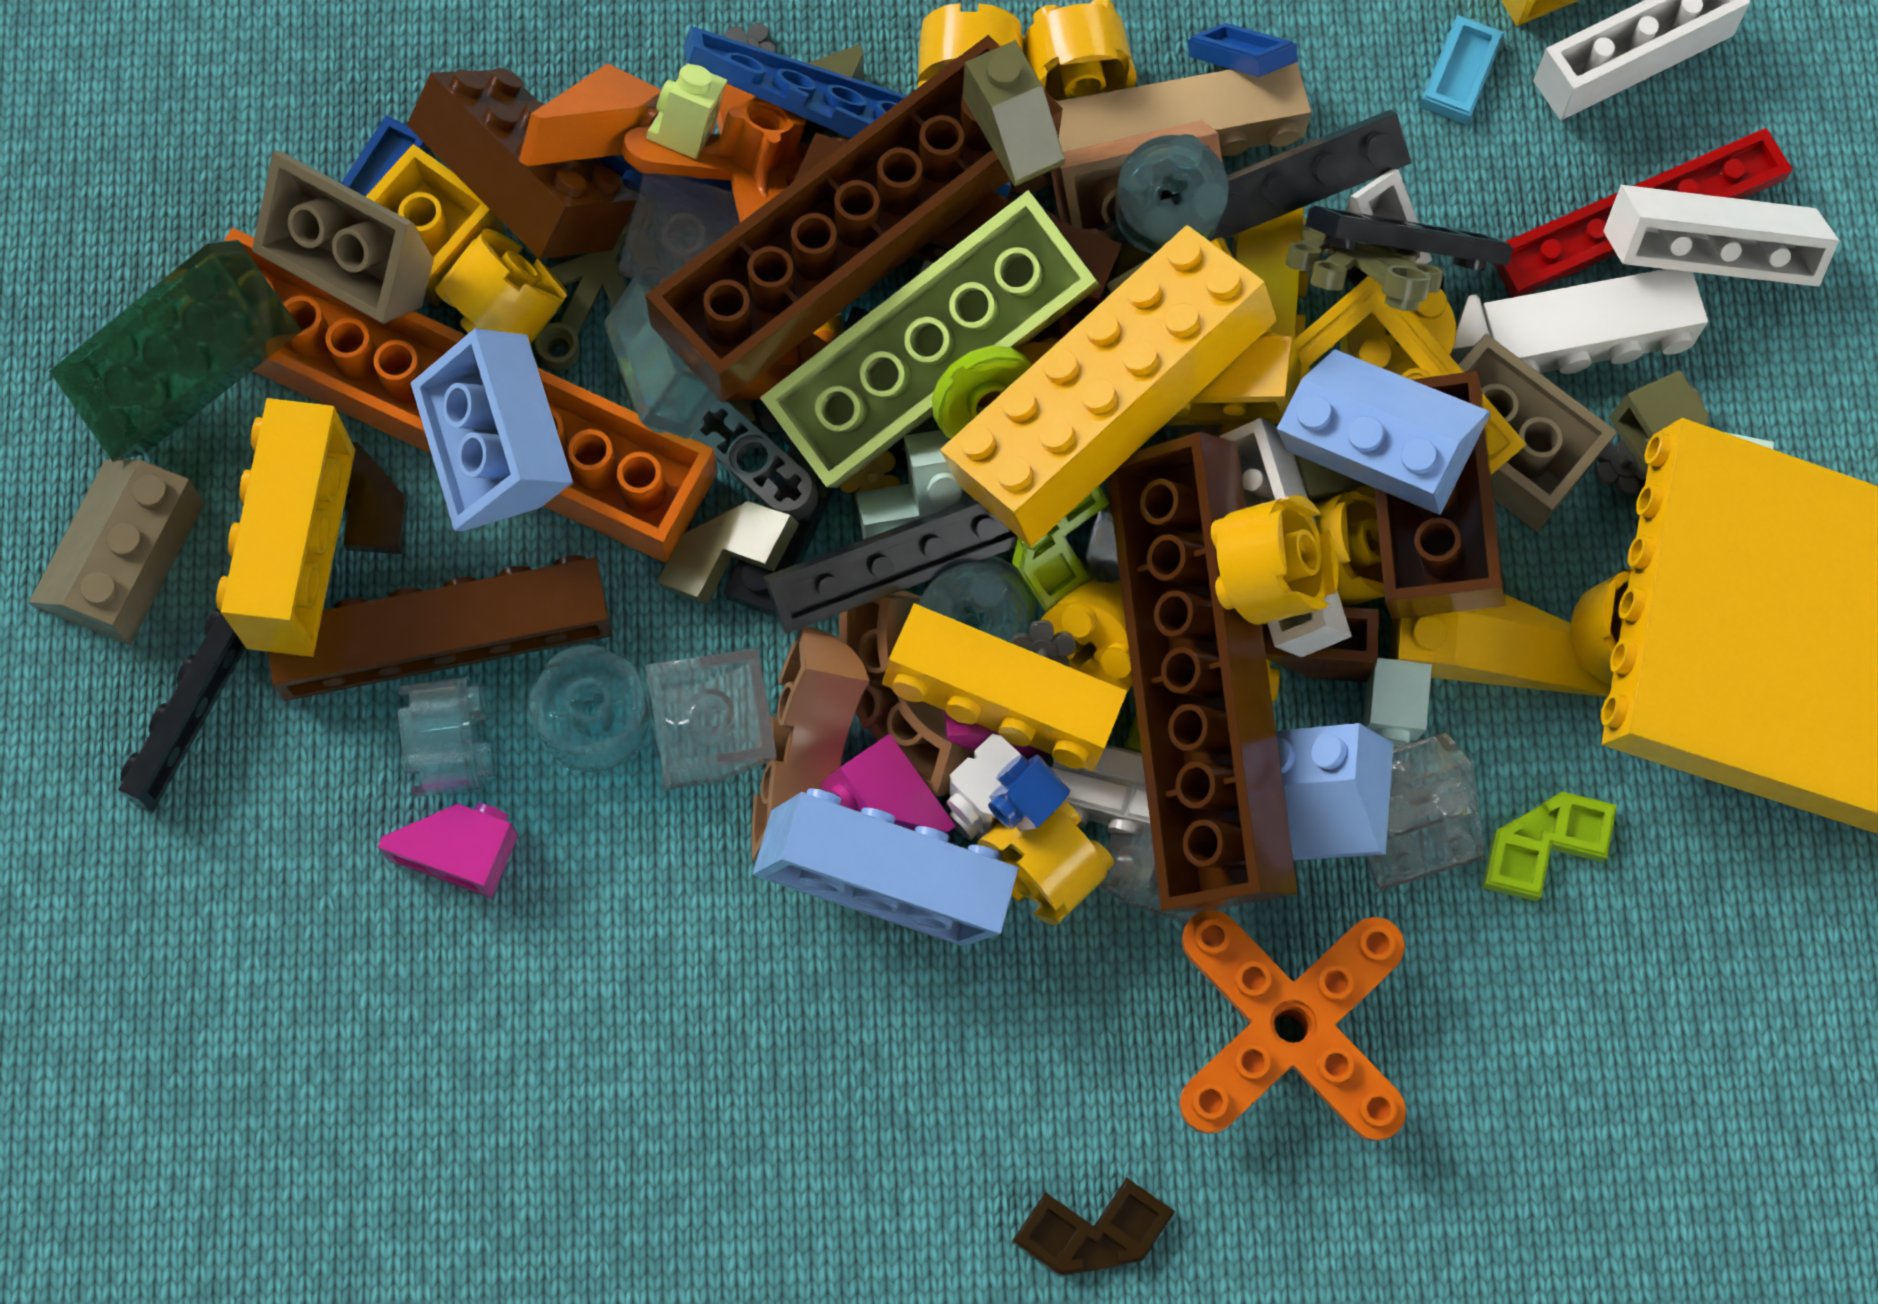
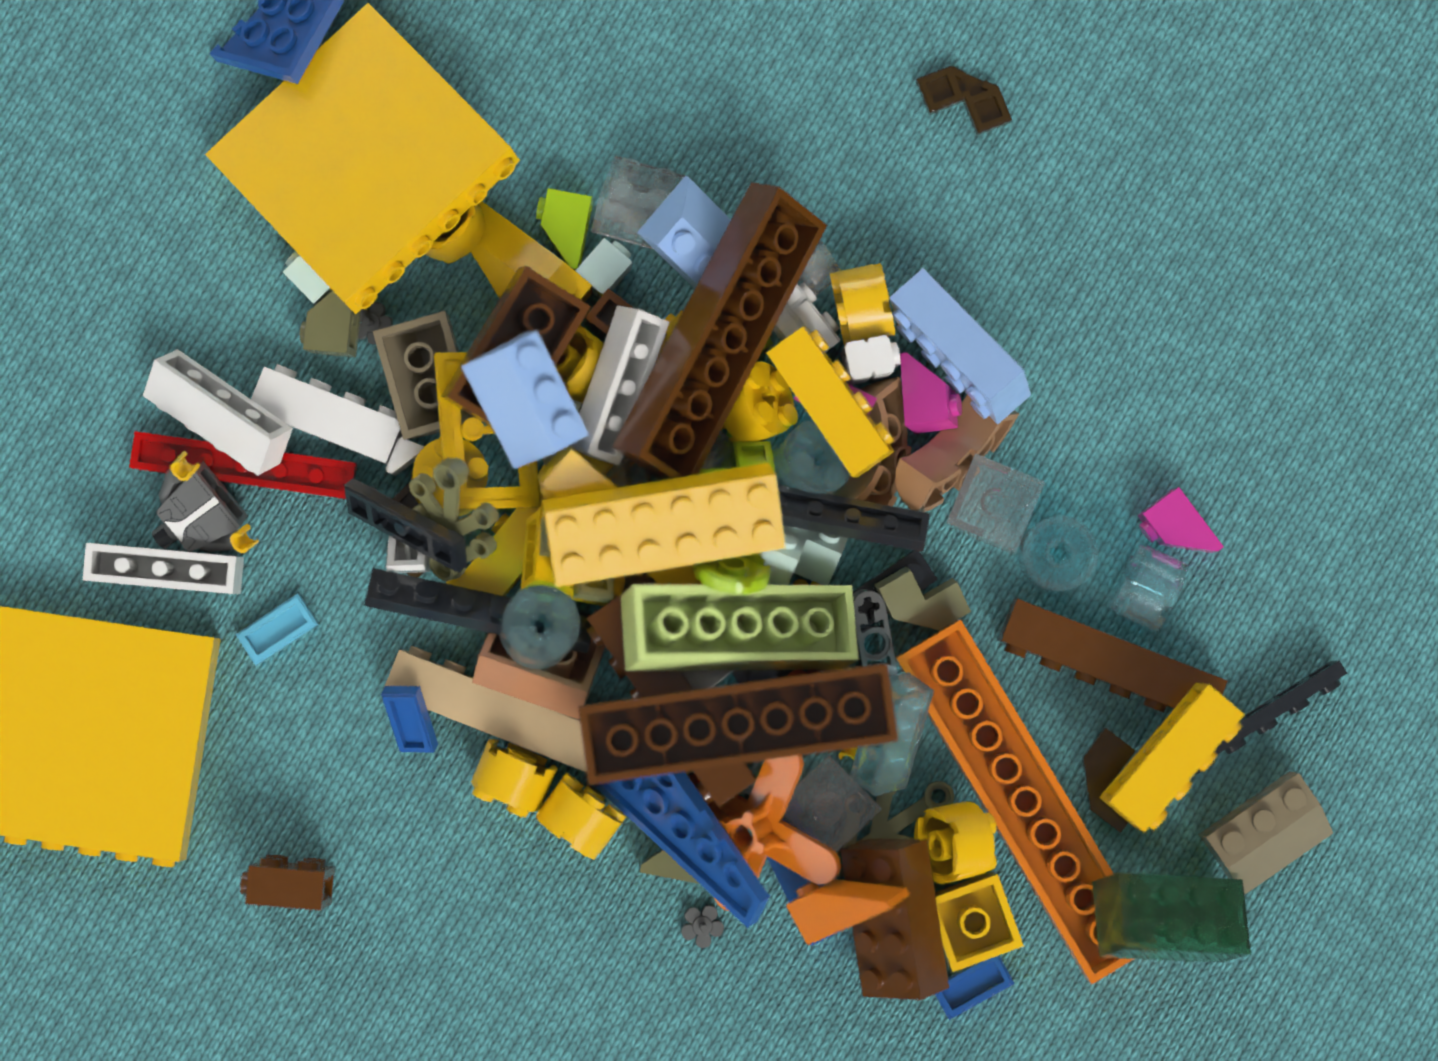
camera: 145 degrees left, 15 degrees up
(341, 241) = (1041, 918): dark tan slope -> none
(490, 429) = (1020, 745): light blue slope -> none
(688, 110) = (786, 870): yellowish green brick -> none
(1012, 112) = (615, 712): olive slope -> none
(1027, 793) = (861, 327): blue plate -> none
(1045, 644) = (792, 412): dark grey plant -> none
(1274, 560) = (647, 356): yellow brick -> none
(1316, 1001) = (790, 105): orange piece -> none
(1482, 722) = (566, 223): none -> lime slope
(1562, 824) = (589, 148): lime tile -> none
(1649, 124) = (199, 511): none -> dark grey torso

